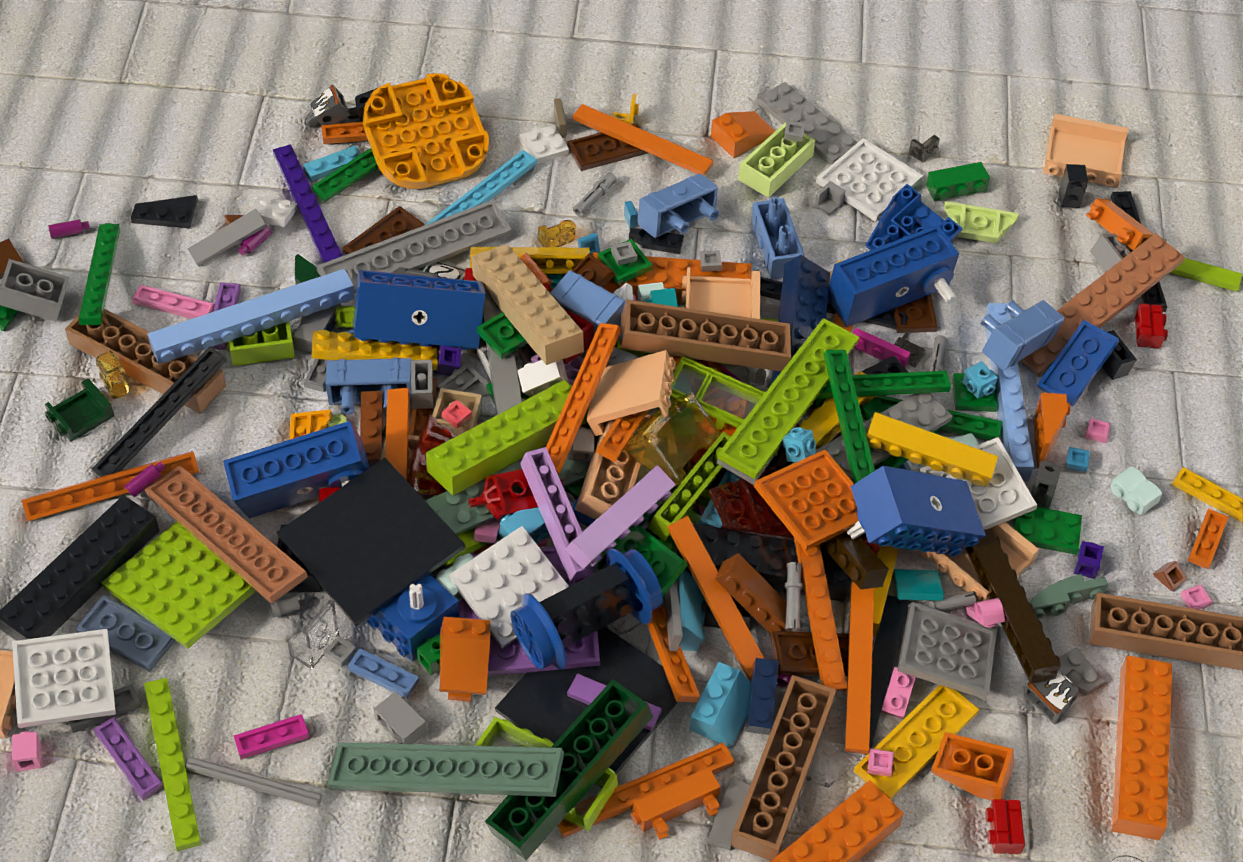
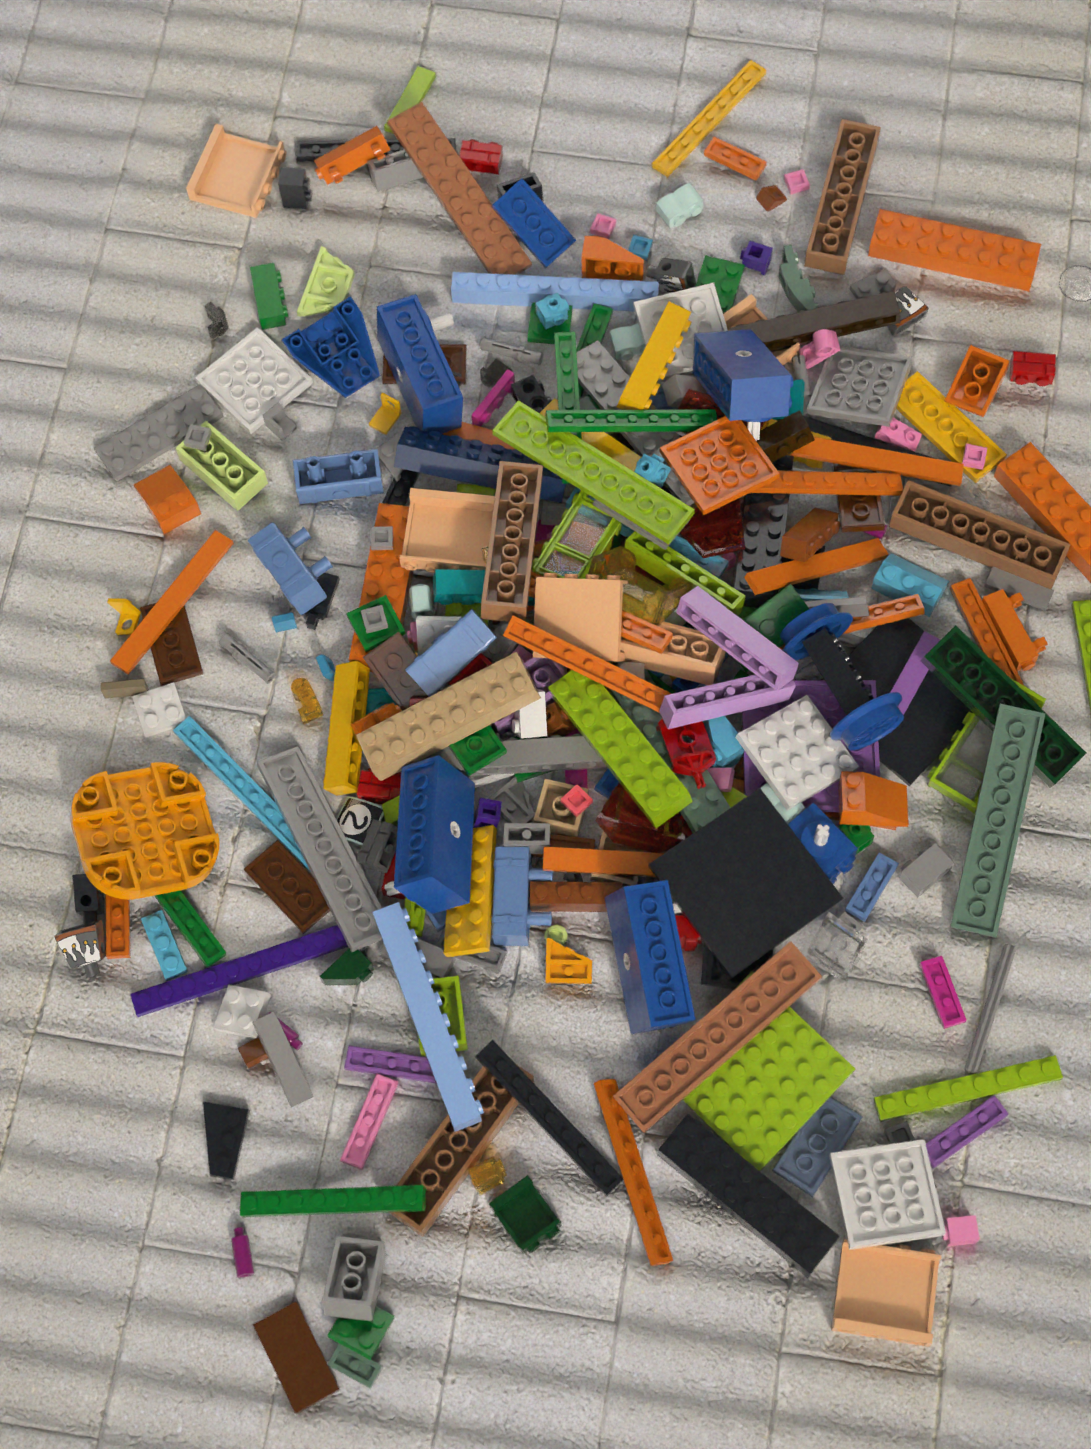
camera: 80 degrees left, 15 degrees up
(145, 479) = (632, 1131): magenta cylinder -> none
(762, 696) = (908, 545): dark blue brick -> none
(793, 588) = (805, 500): light grey pin -> none
(1021, 334) = (510, 259): medium blue piece -> none

